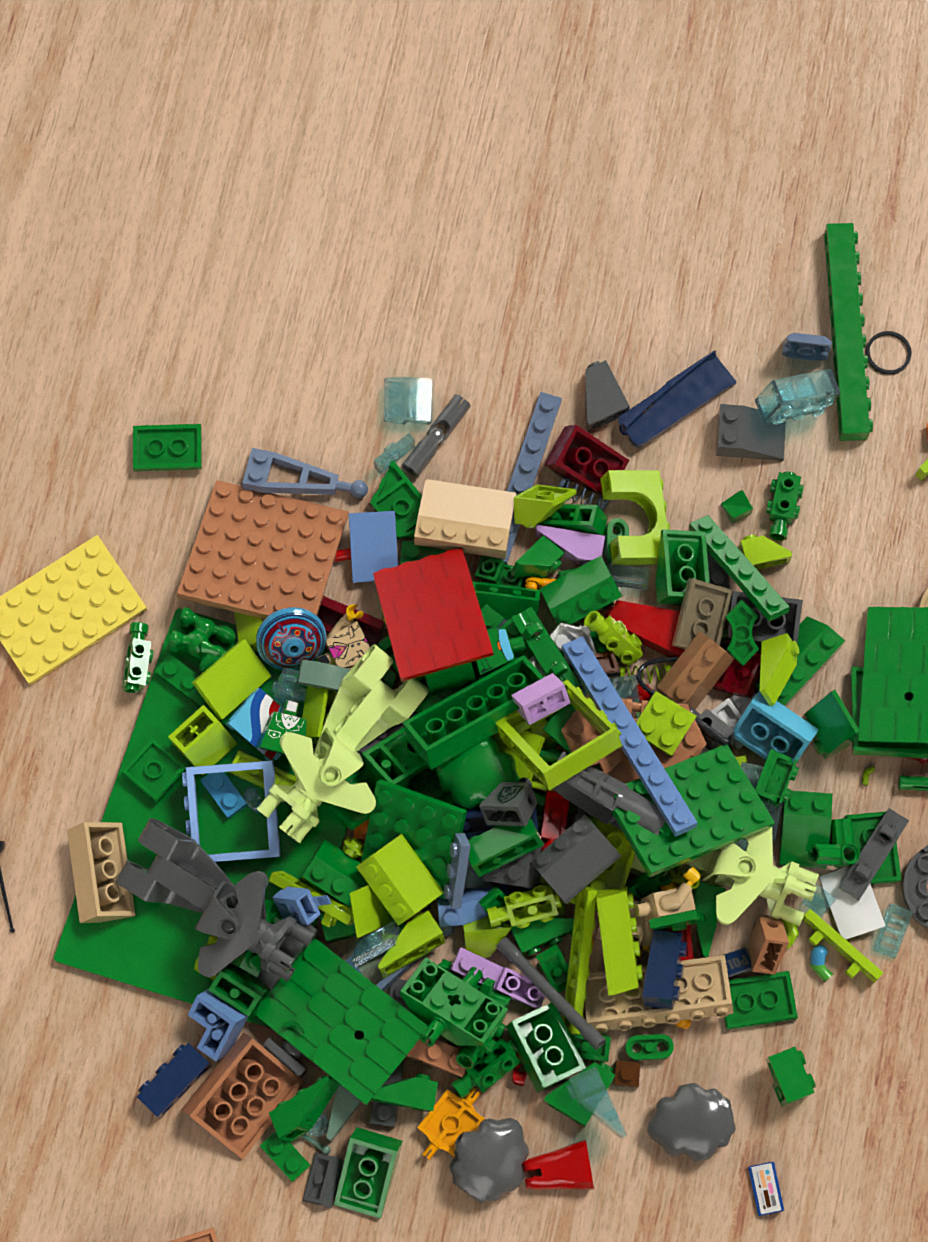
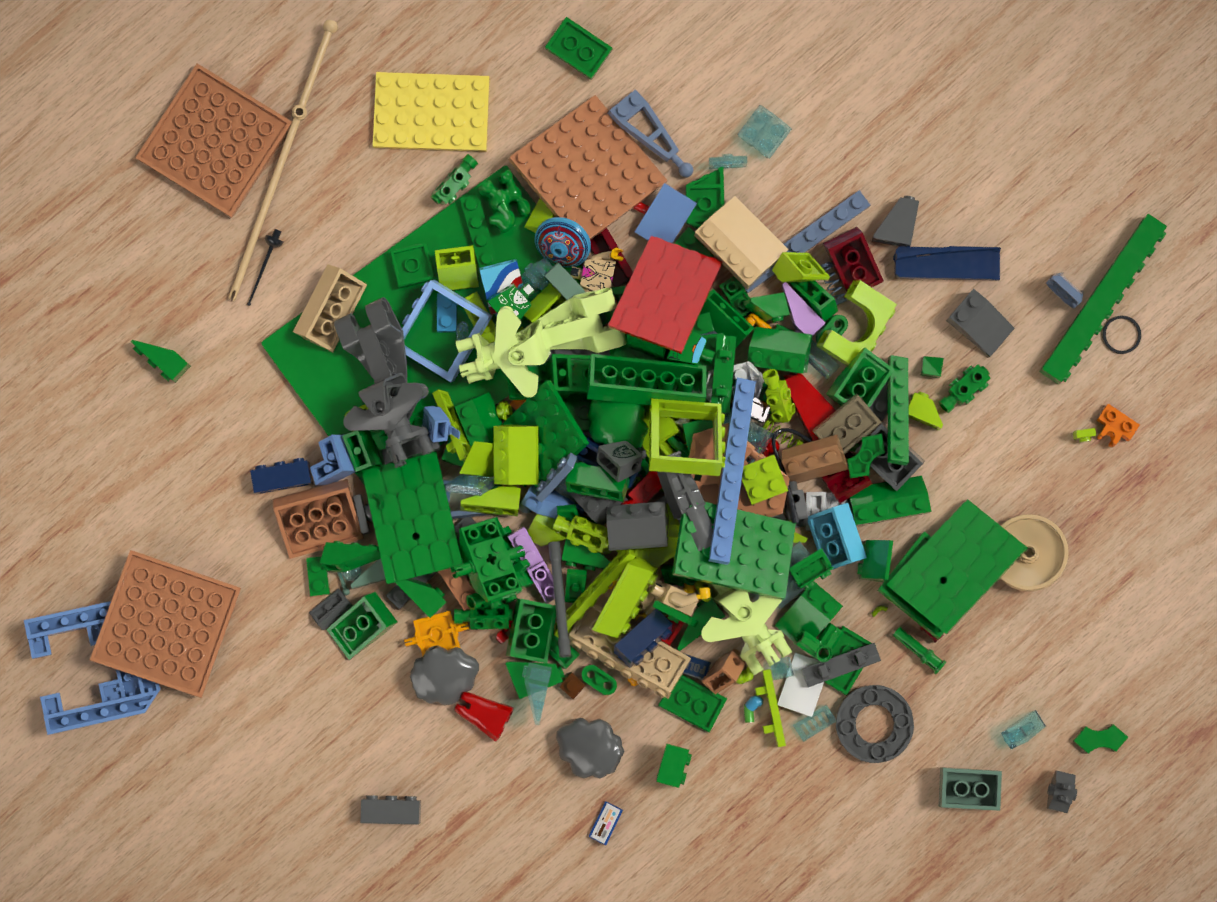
camera: 40 degrees right, 10 degrees up
(231, 679) = (504, 241): lime tile -> none
(426, 448) = (753, 174): dark grey piece -> none
(541, 698) = (692, 405): lavender hinge -> none
(777, 665) = (872, 494): lime slope -> none
(797, 397) = (1029, 322): clear light blue brick -> none

